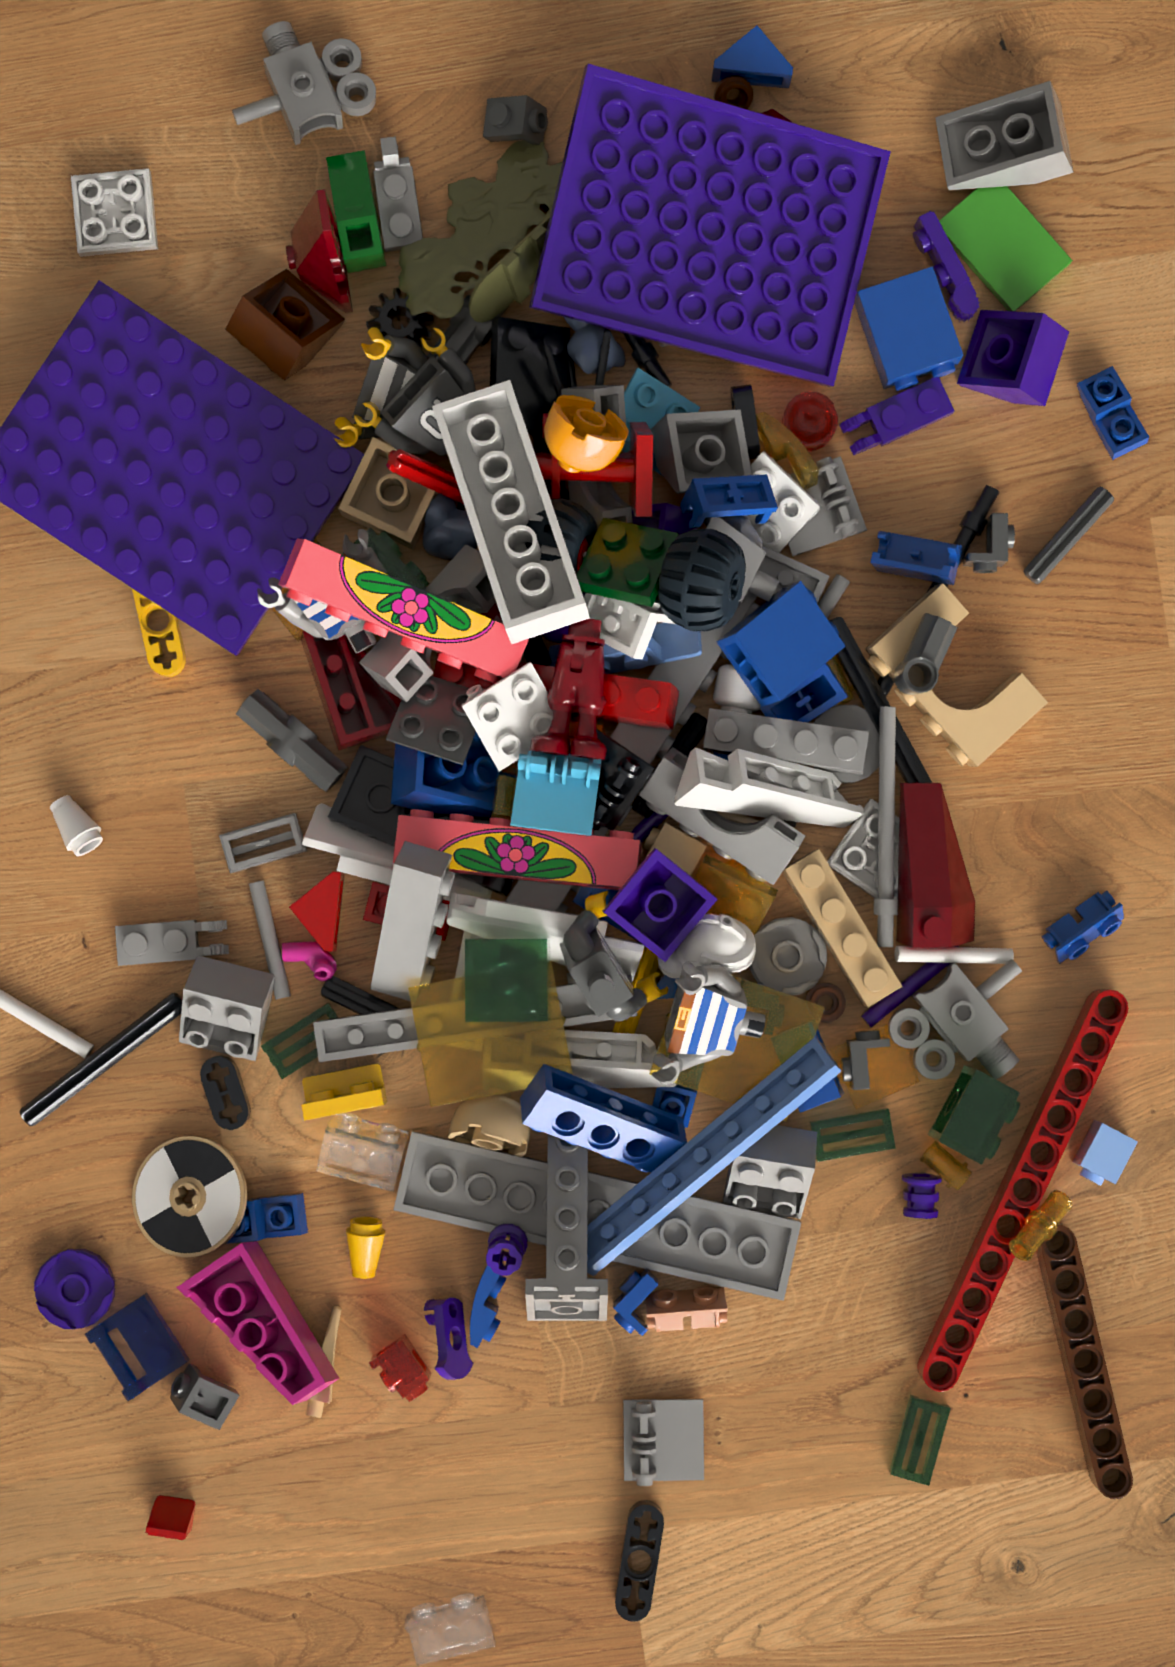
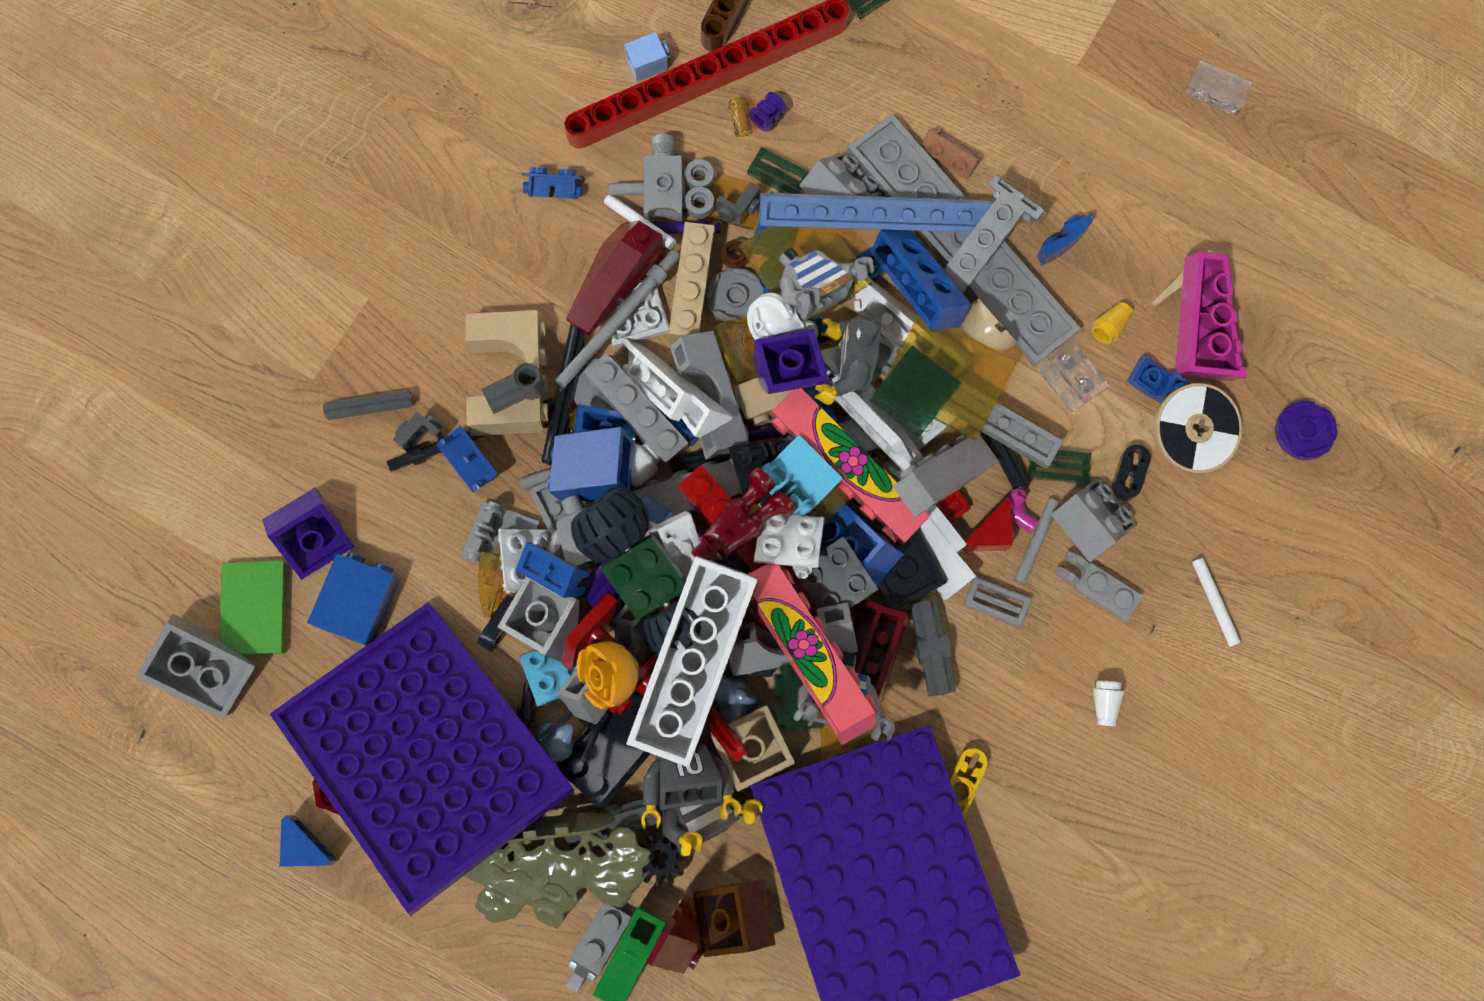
camera: 145 degrees left, 10 degrees down
(102, 1060) = (1192, 548): black axle -> none
(149, 1341) = (1281, 369): clear blue plate -> none
(171, 1517) = (1340, 260): red slope -> none
(202, 1397) = (1273, 311): dark grey bracket -> none
(343, 1091) = (1060, 415): yellow bracket -> none
(402, 1368) = (1142, 241): clear red brick -> none
(449, 1316) = (1093, 245): dark purple piece -> none
(515, 119) = (481, 934): dark grey bracket -> none
(516, 1245) = (1033, 263): dark purple bush -> none
(623, 1588) = (1085, 33): black beam -> none
(635, 1290) = (978, 179): blue bracket -> none
(663, 1440) = (1019, 95): light grey hinge -> none
(731, 82) = (332, 828): reddish brown plate -> none
(811, 419) = (459, 592): clear red wheel -> none
(901, 415) = (403, 553): dark purple hinge -> none
(947, 266) = (292, 642): dark purple hinge -> none
(975, 1114) = (703, 125): clear green brick -> none
(1040, 1225) = (716, 39): clear yellow pin -> none
(1111, 412) = (280, 456): blue slope -> none

